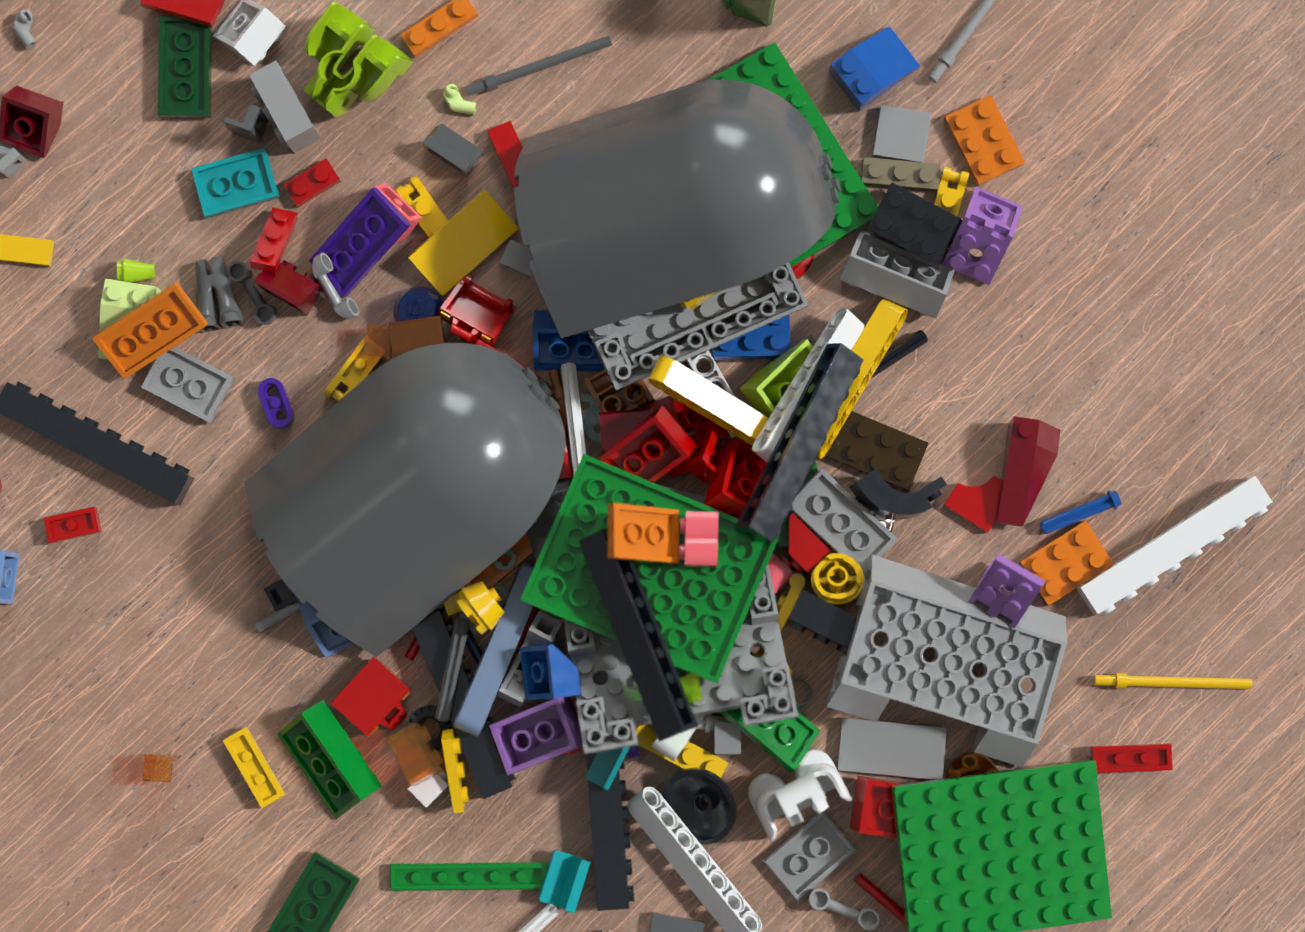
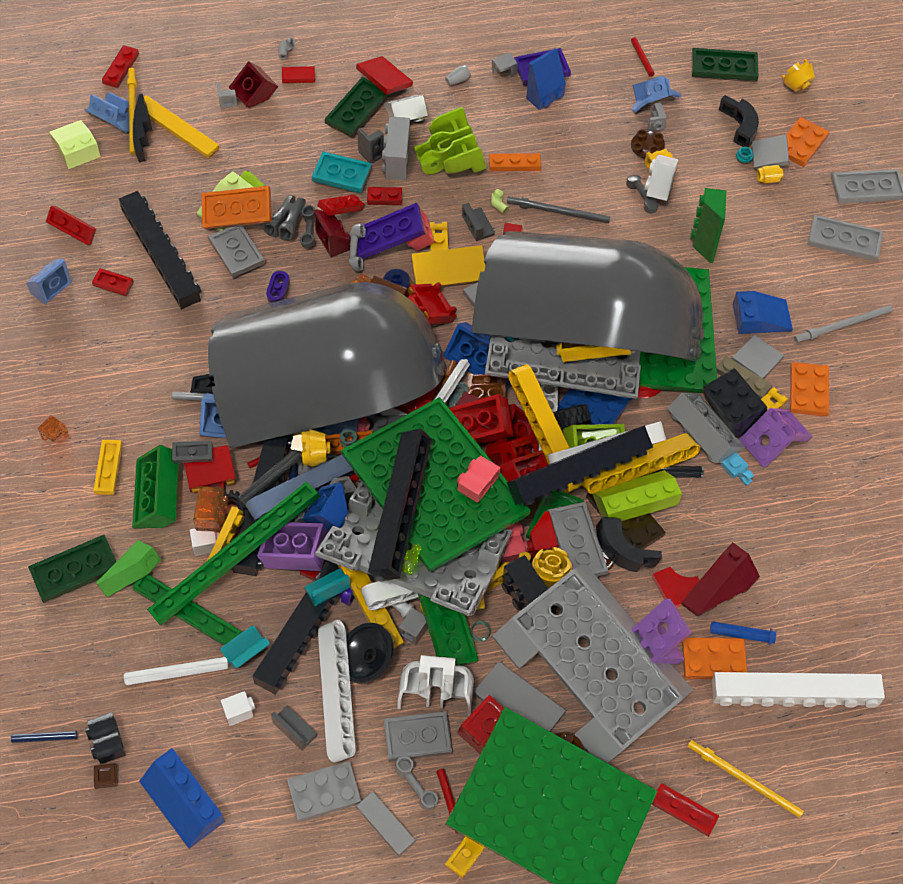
camera: 25 degrees right, 25 degrees down
(71, 61) = (301, 74): none -> red tile
(341, 694) = (192, 451): none -> dark grey panel
(374, 869) = (129, 568): none -> bright green slope
(480, 787) = (233, 553): none -> green plate
(643, 533) = (444, 449): orange plate -> none
(742, 369) = (572, 415): none -> black tyre
(875, 421) = (639, 496): none -> lime slope
(958, 303) = (736, 466): none -> medium azure plate

